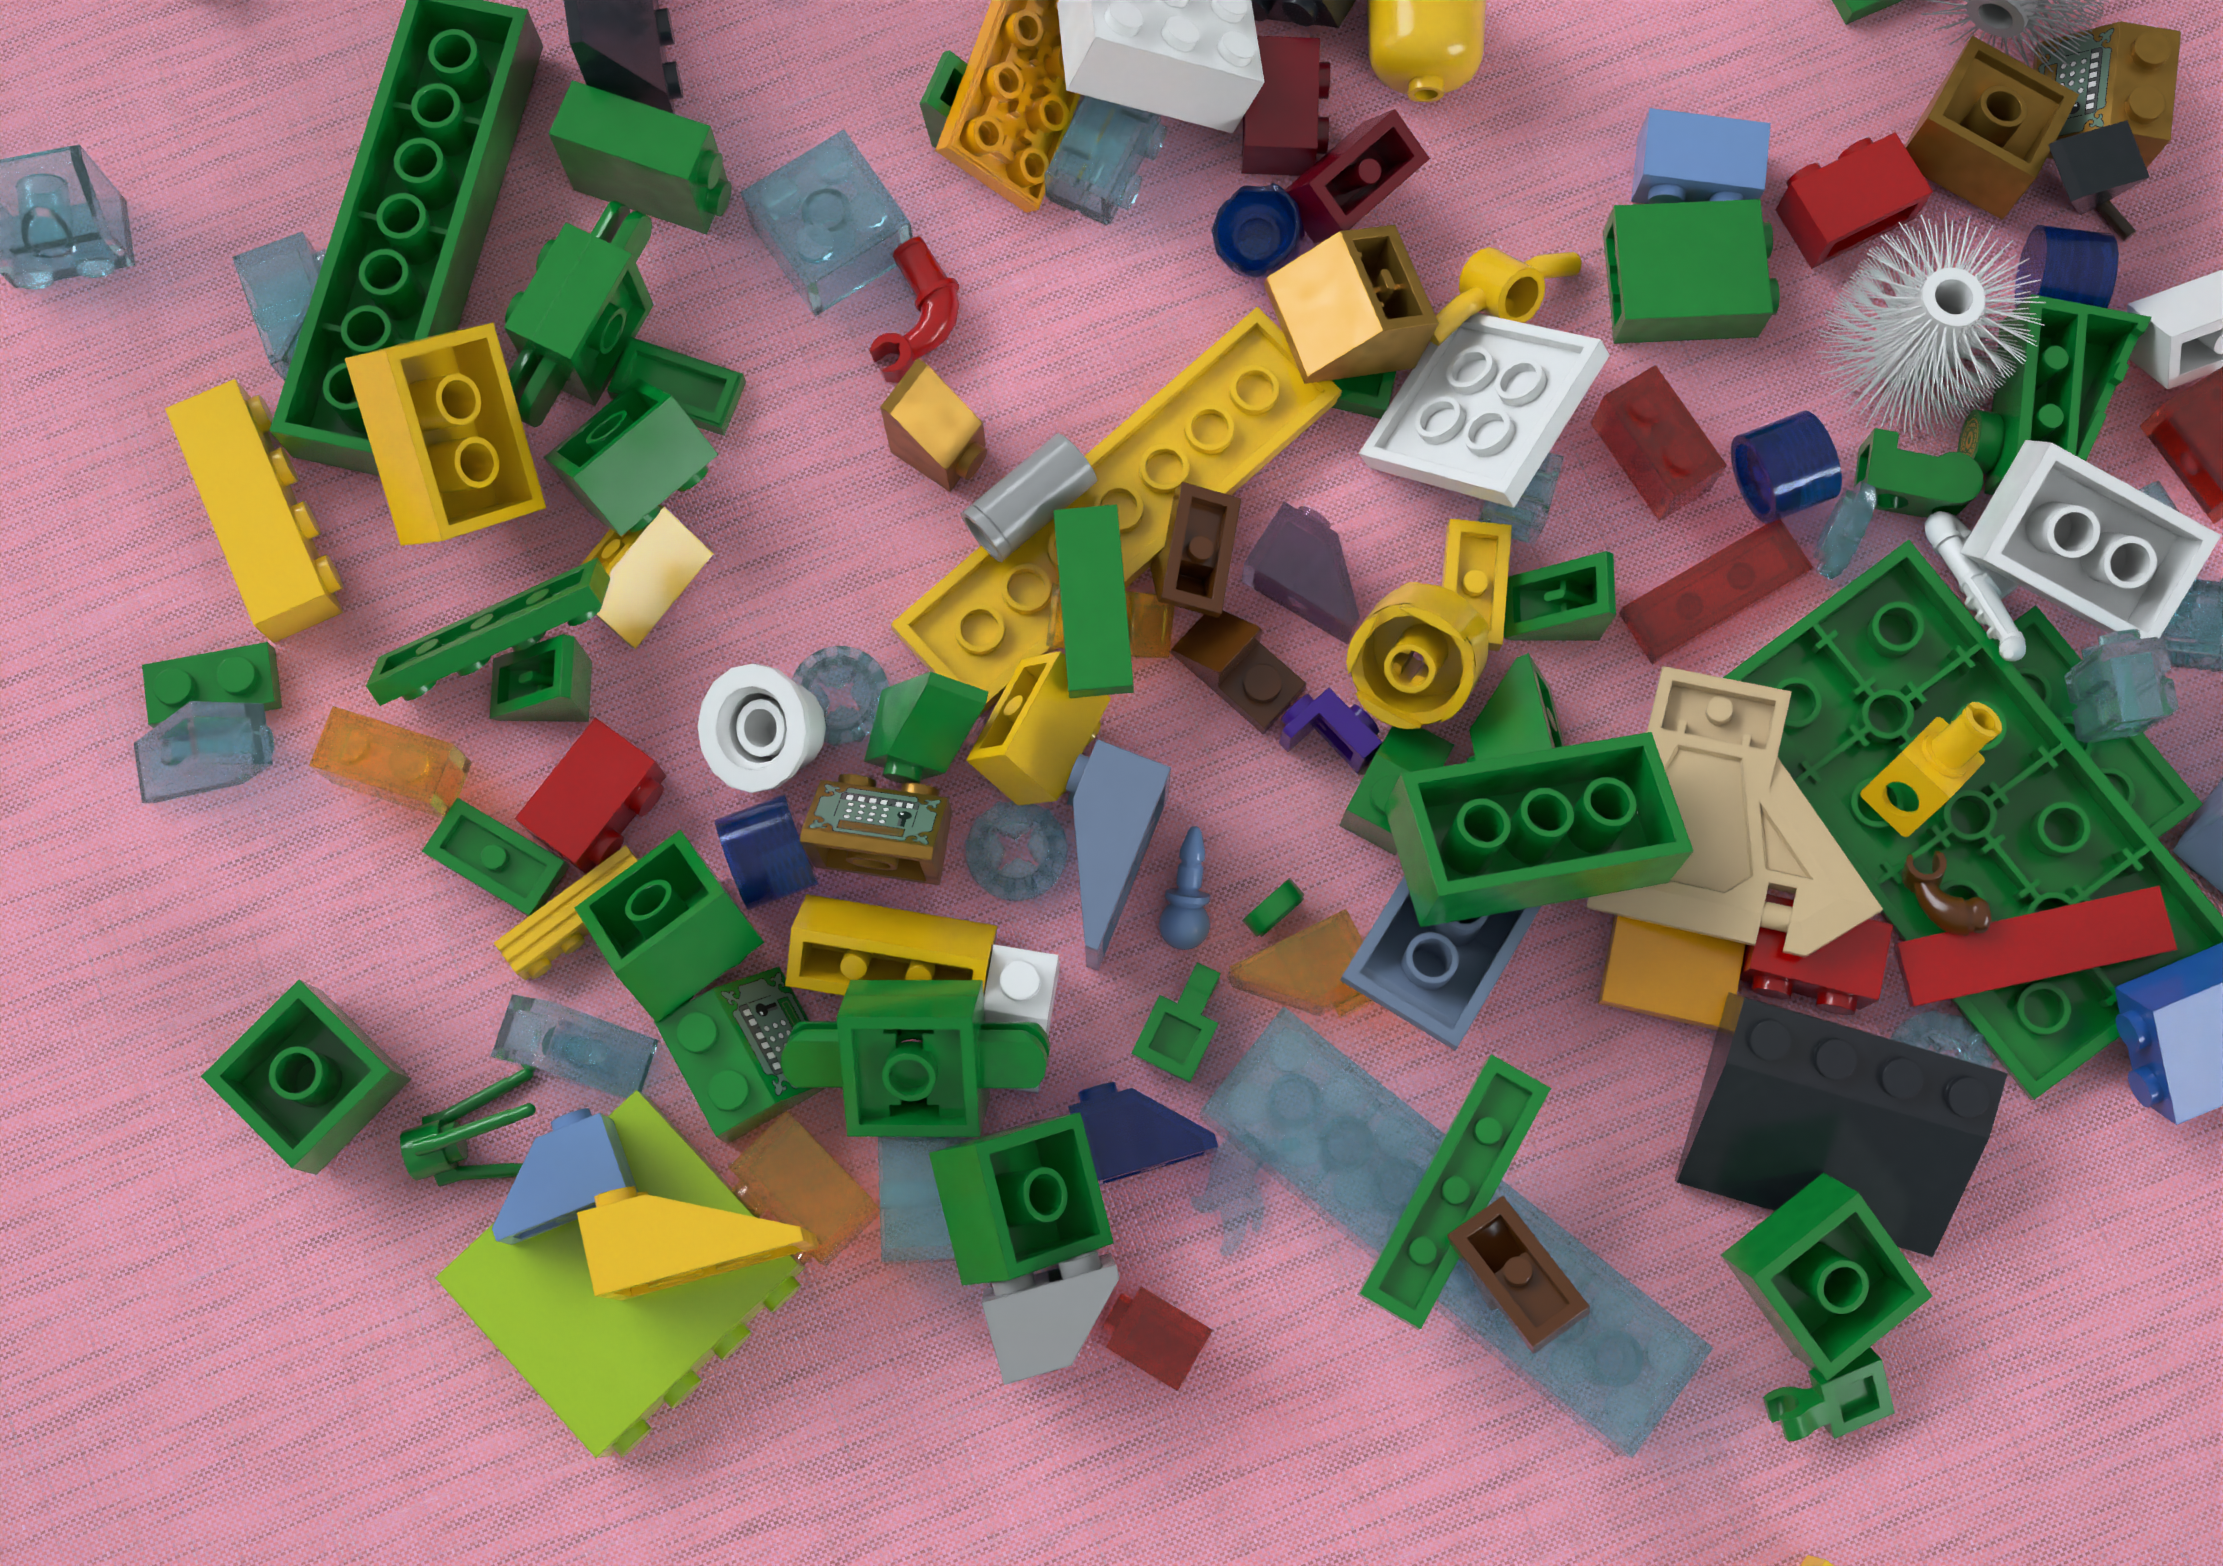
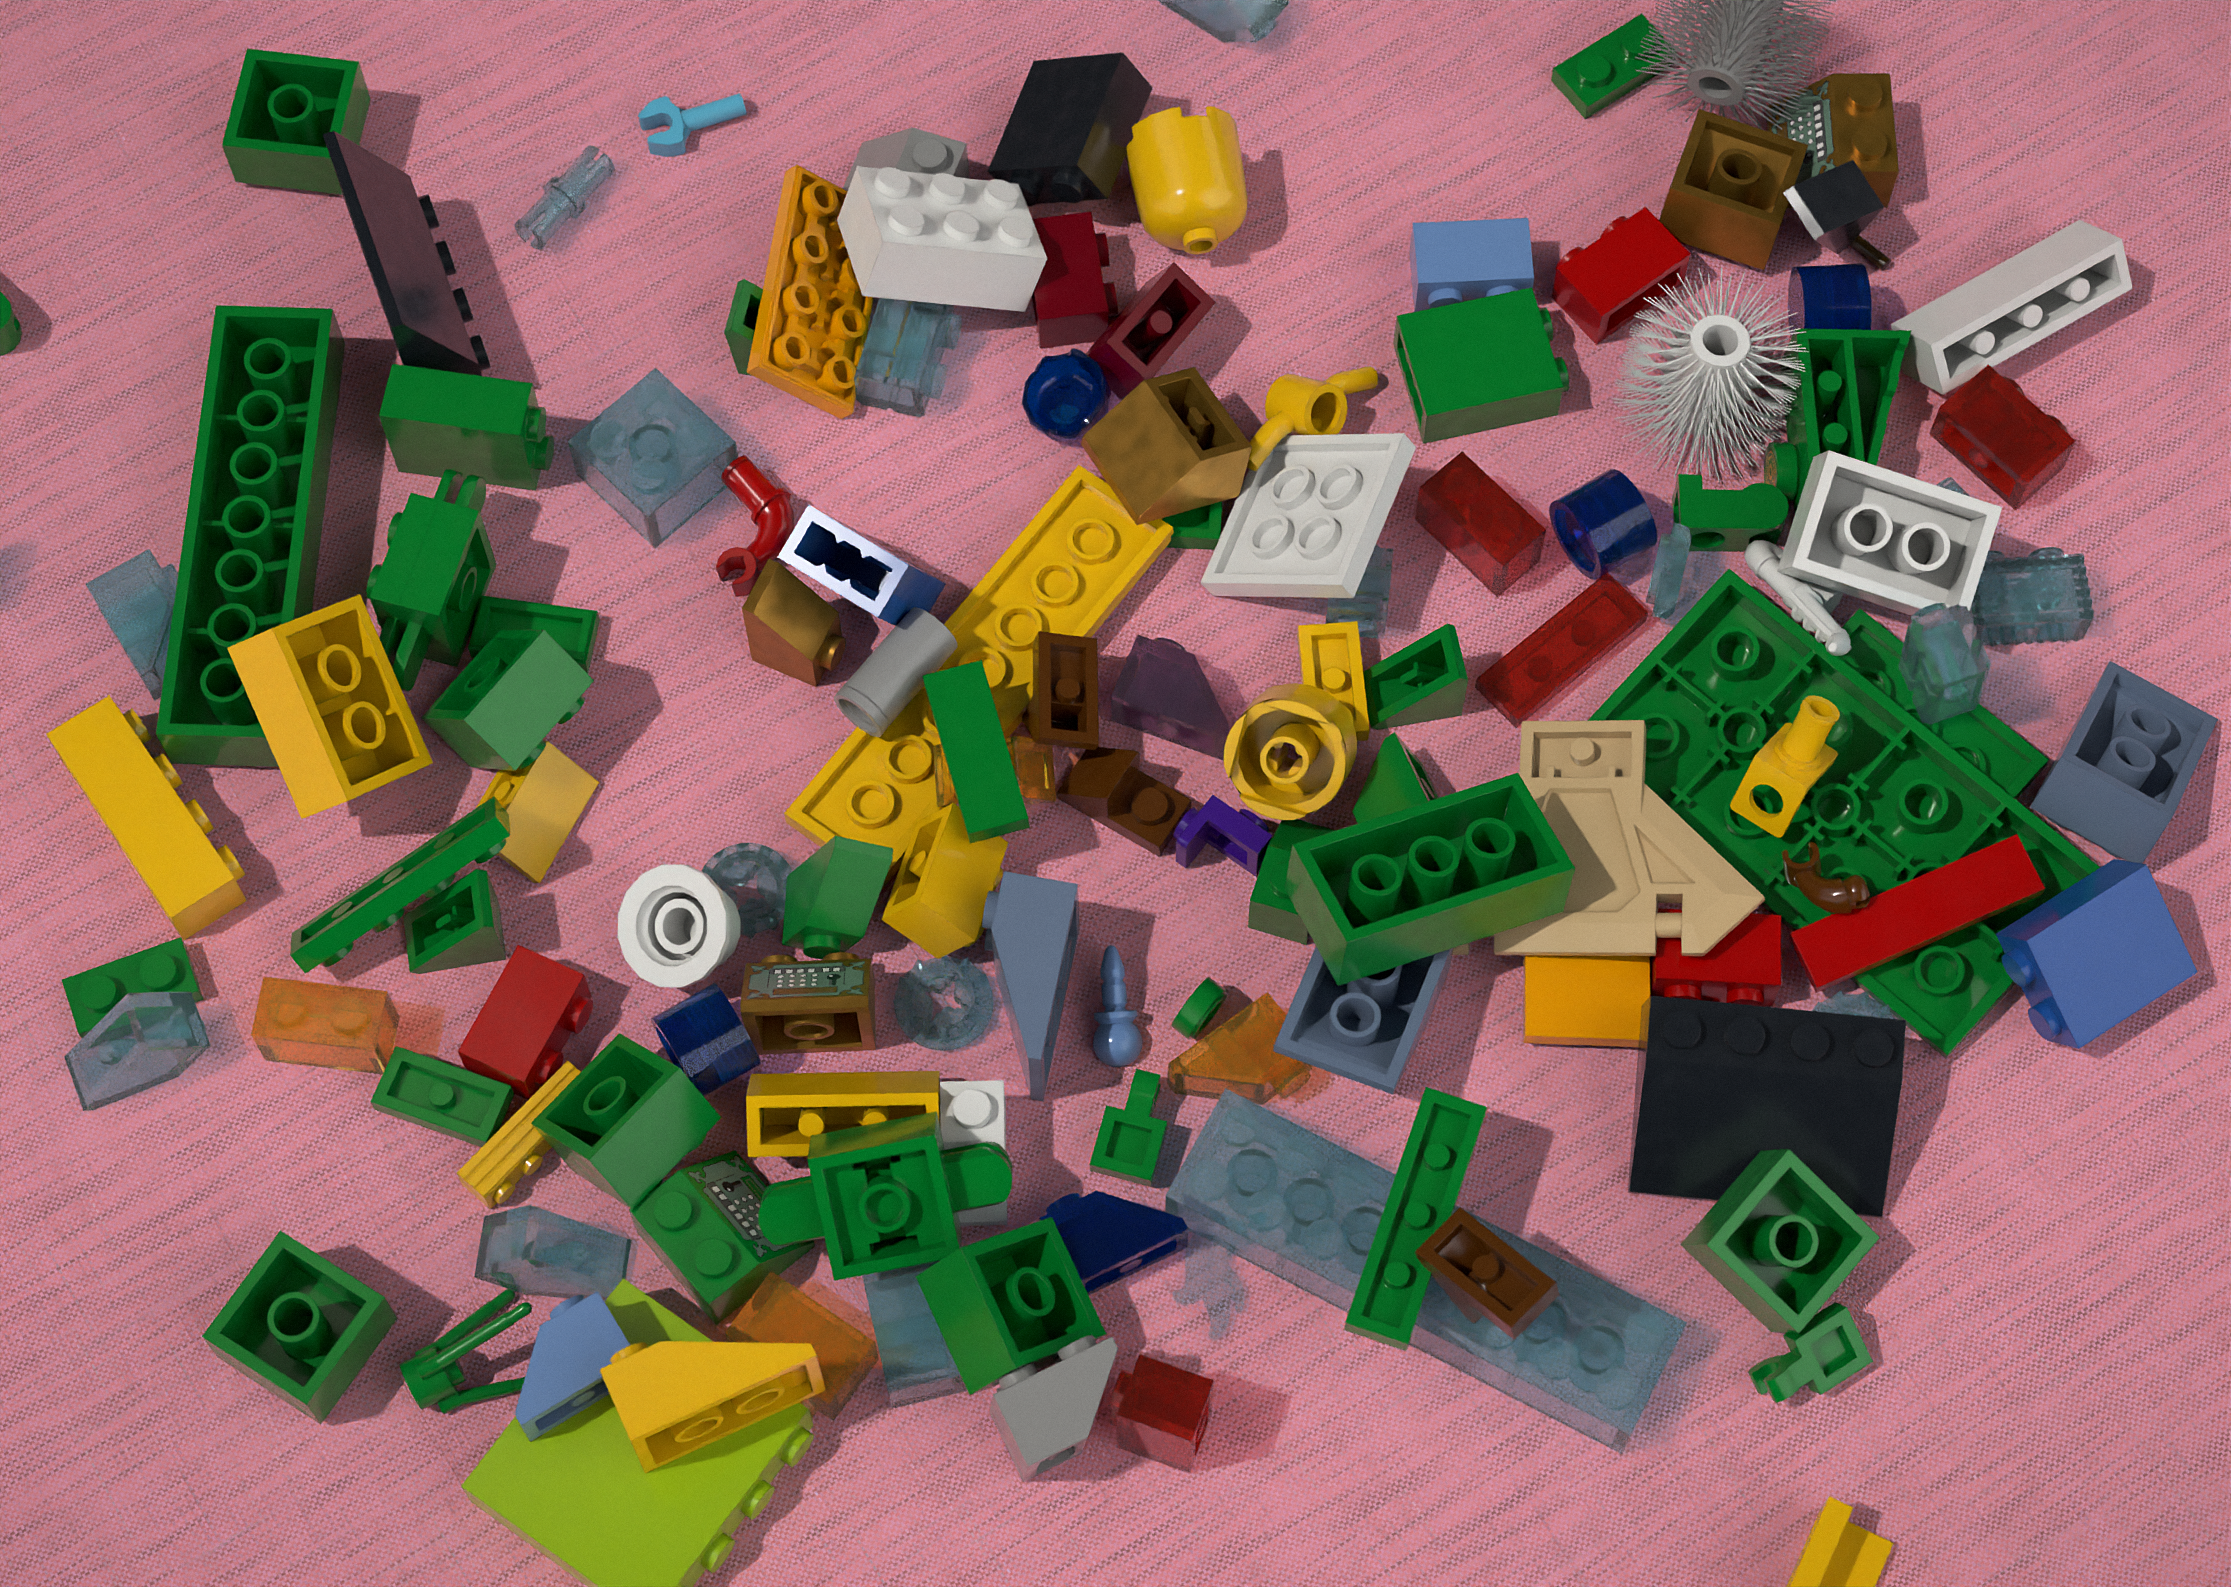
camera: 10 degrees left, 10 degrees down
(1010, 381) = (858, 567): none -> blue brick

